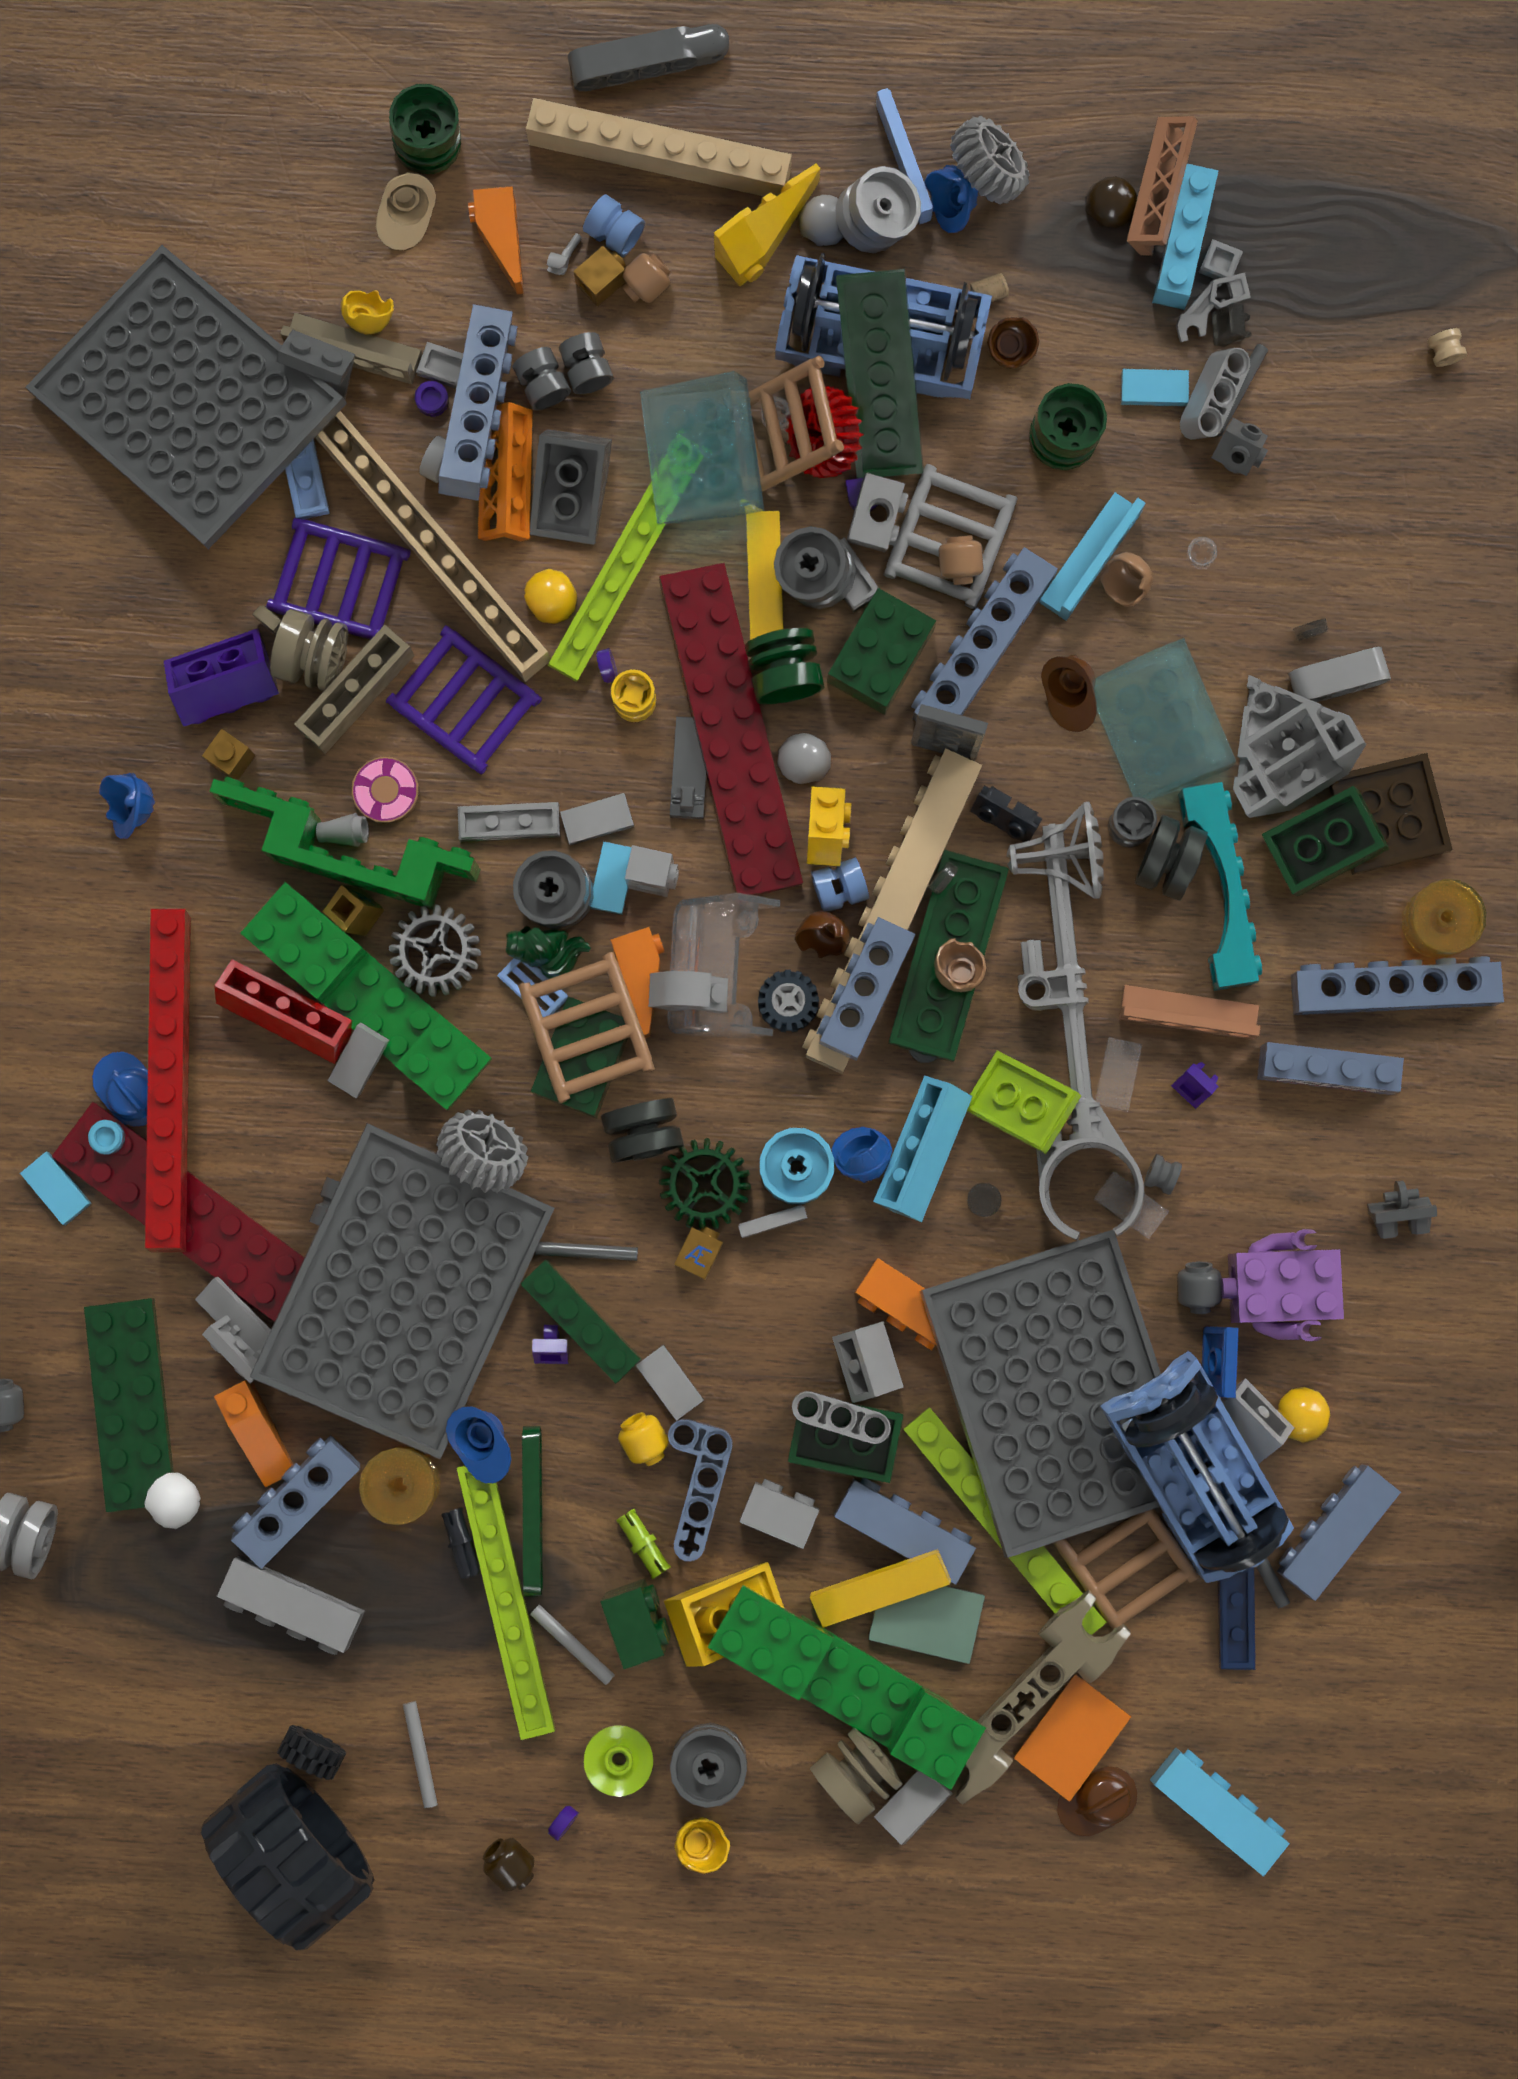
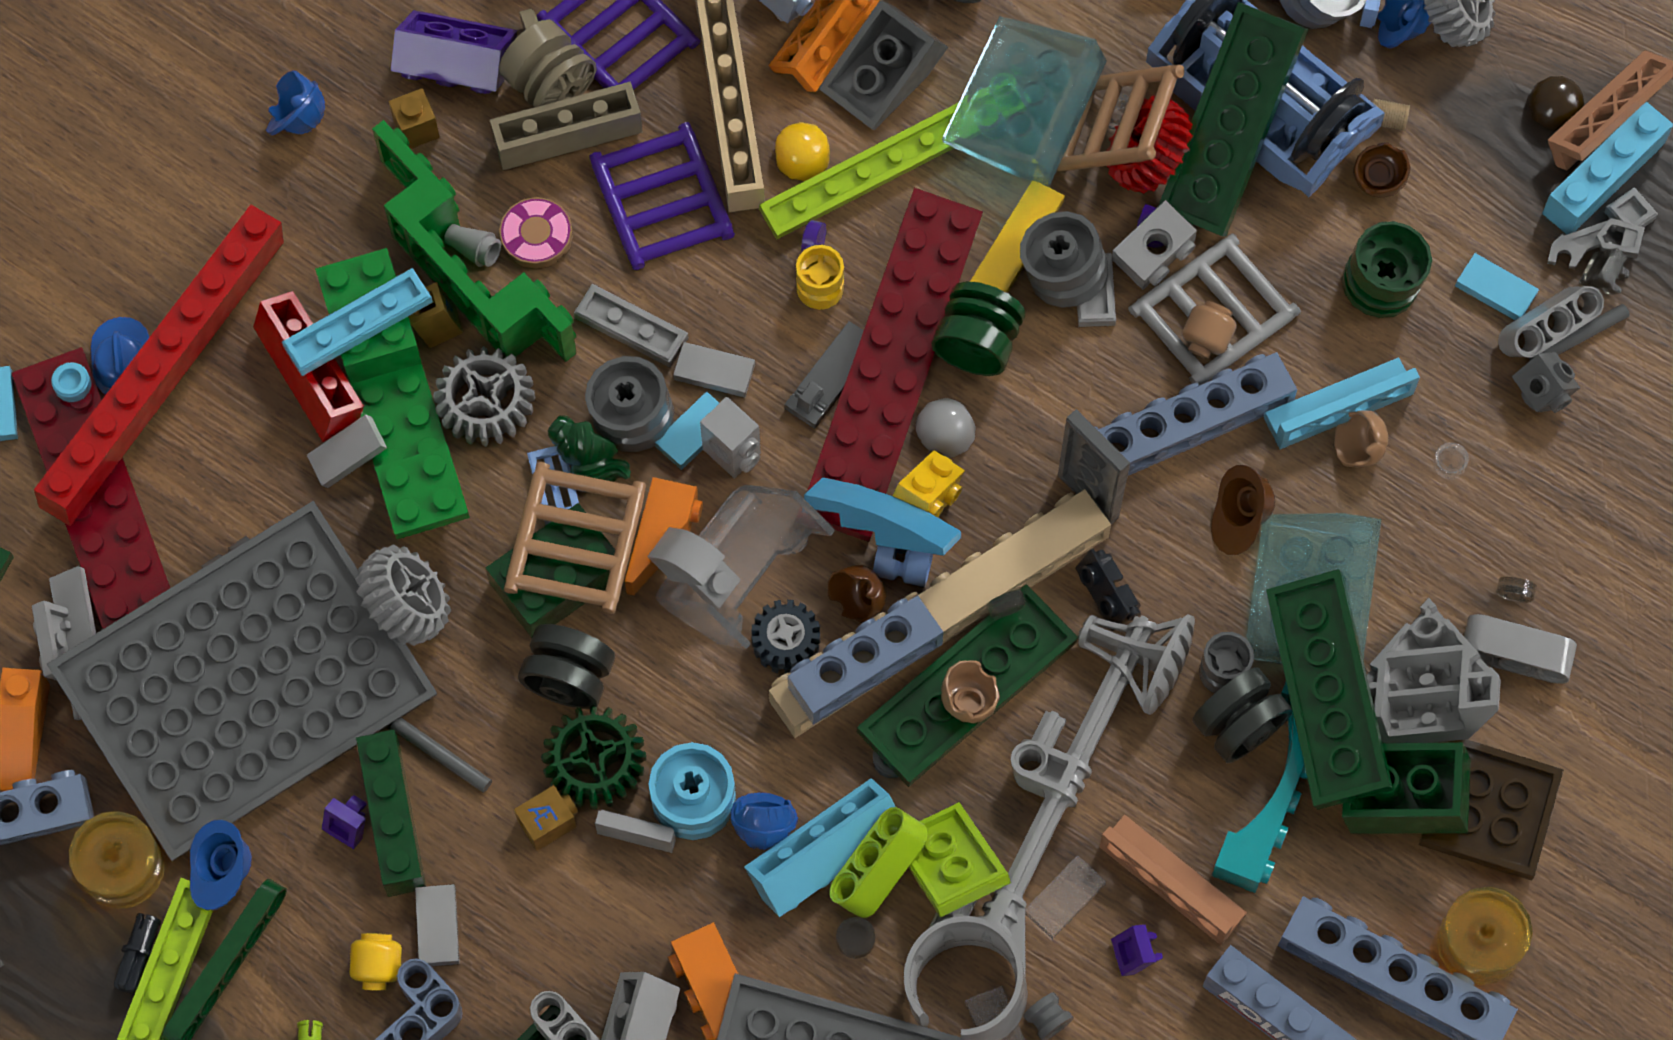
camera: 30 degrees right, 15 degrees down
(305, 959) = (357, 322): none -> medium azure tile
(817, 866) = (891, 519): none -> dark azure slope
(881, 651) = (1080, 370): dark green brick -> none
(970, 1137) = (878, 862): none -> lime beam
(1226, 801) = (1329, 690): none -> dark green plate

